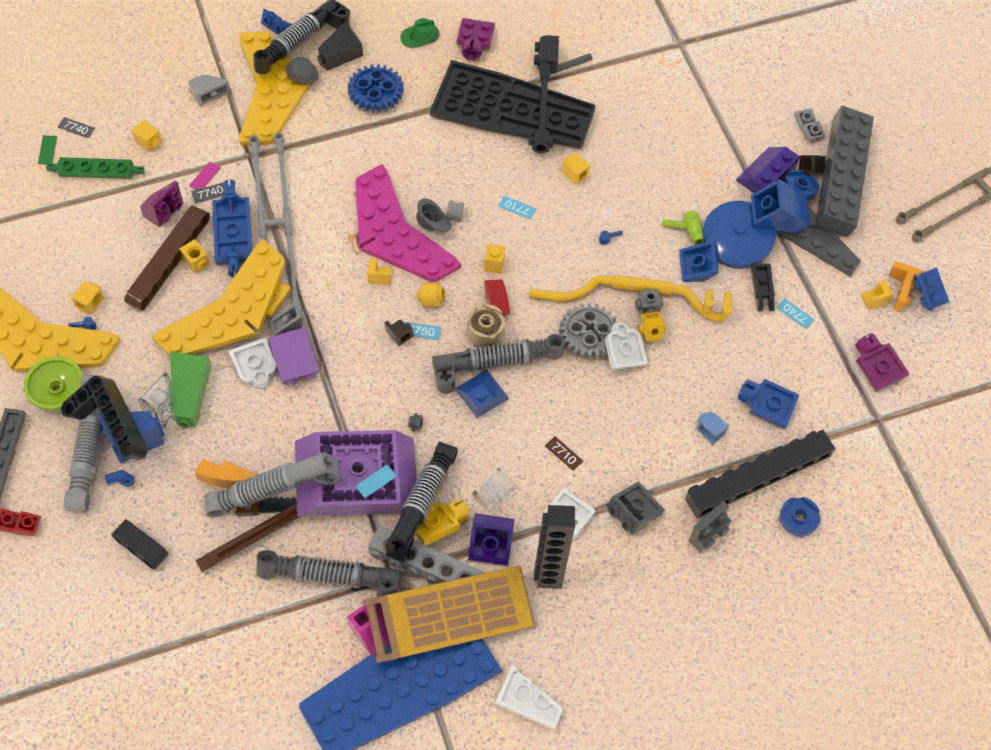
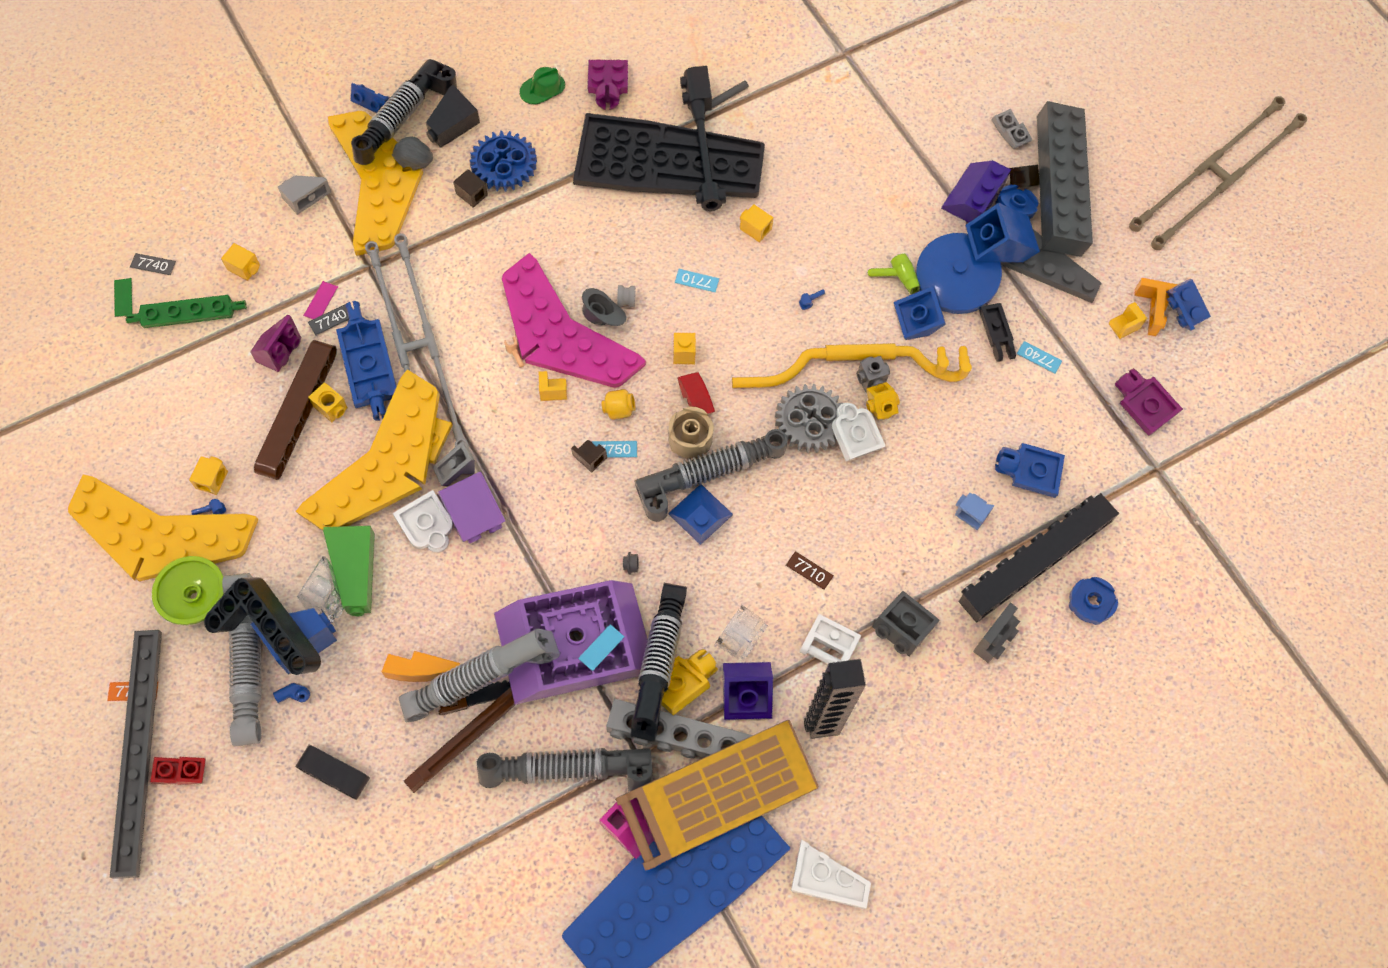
camera: 10 degrees left, 5 degrees up
(344, 105) = (470, 188): none -> dark brown panel

